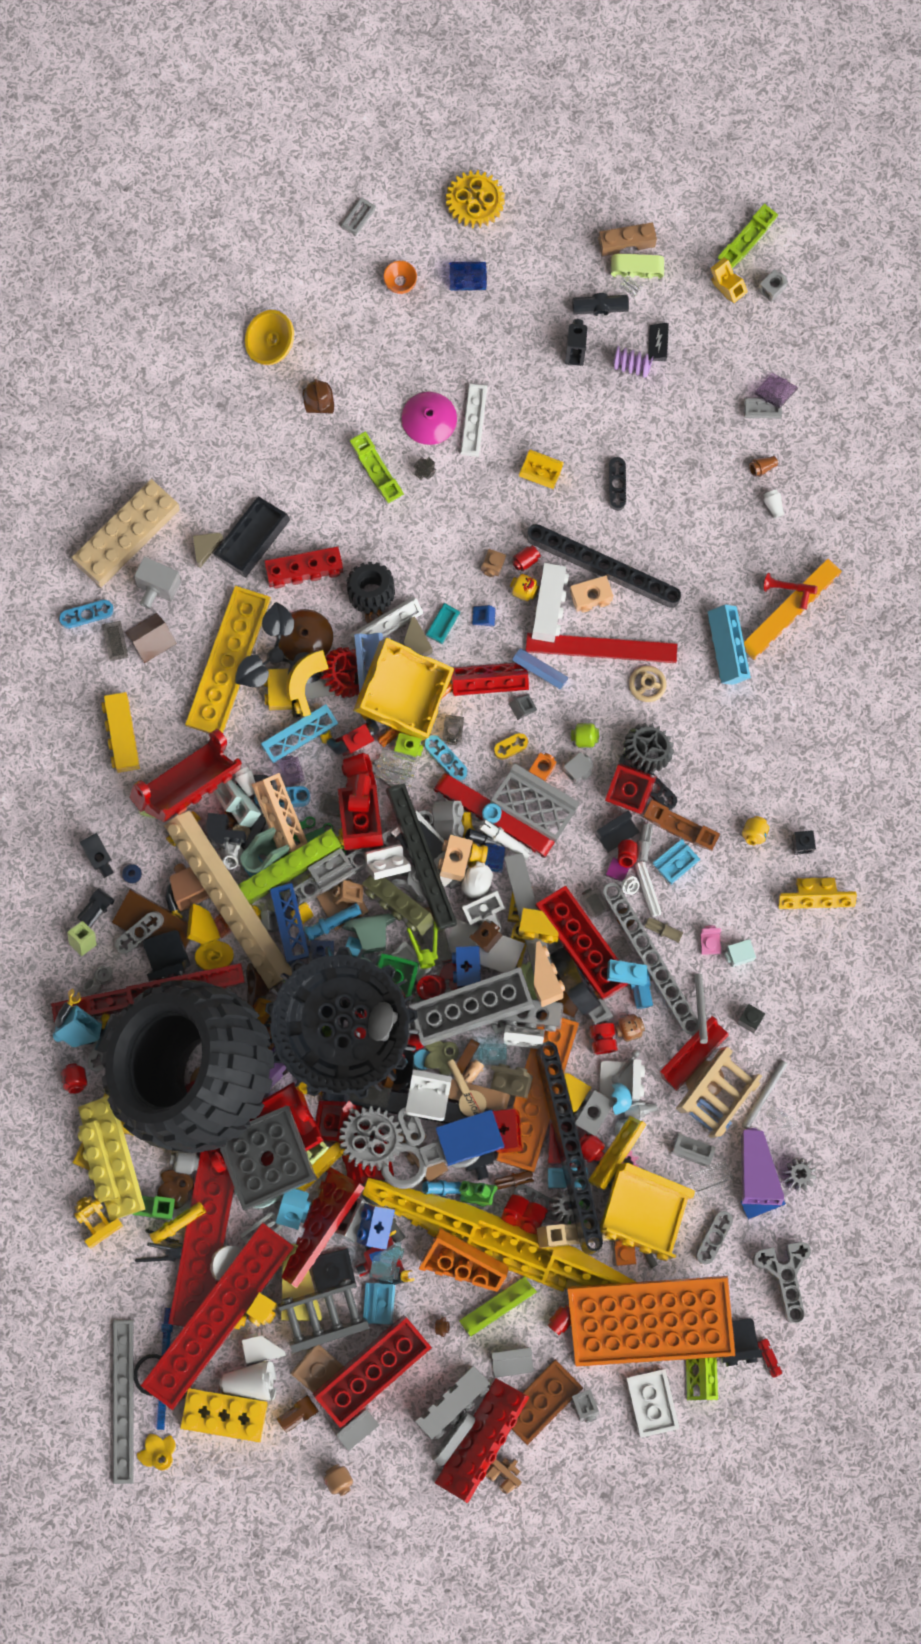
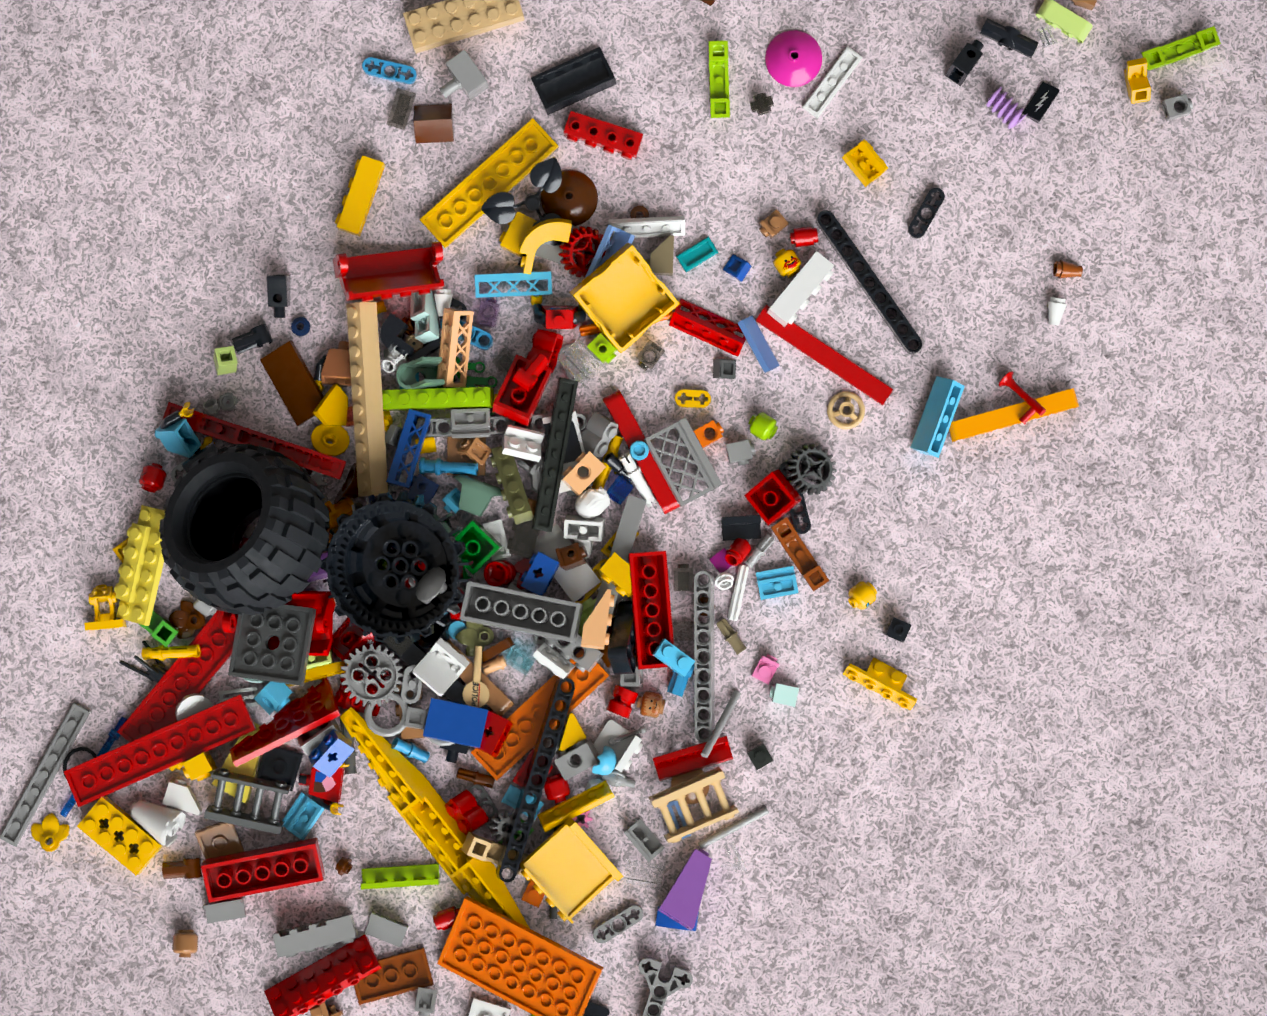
camera: 40 degrees right, 10 degrees up
(147, 933) = (283, 377): light grey beam -> none
(166, 955) = (288, 417): black bracket -> none
(205, 546) = (526, 67): dark tan slope -> none
(375, 599) = (650, 173): black tyre -> none
(385, 1264) = (322, 789): clear light blue slope -> none
(425, 957) = (506, 545): lime plant -> none
(432, 751) = (637, 390): medium azure beam -> none
(453, 1439) = (300, 964): light grey beam -> none
(460, 1260) = (392, 823): orange wedge -> none
(477, 1193) = (437, 771): bright green hips -> none
(478, 853) = (606, 479): yellow wheel -> none
(511, 1081) = (520, 693): dark tan bracket -> none
(599, 586) = (854, 299): light nougat brick -> none
(760, 409) = (1098, 216): light grey plate -> none
(776, 390) = (1120, 207): clear purple piece -> none
(802, 1182) = (718, 919): light grey gear -> none

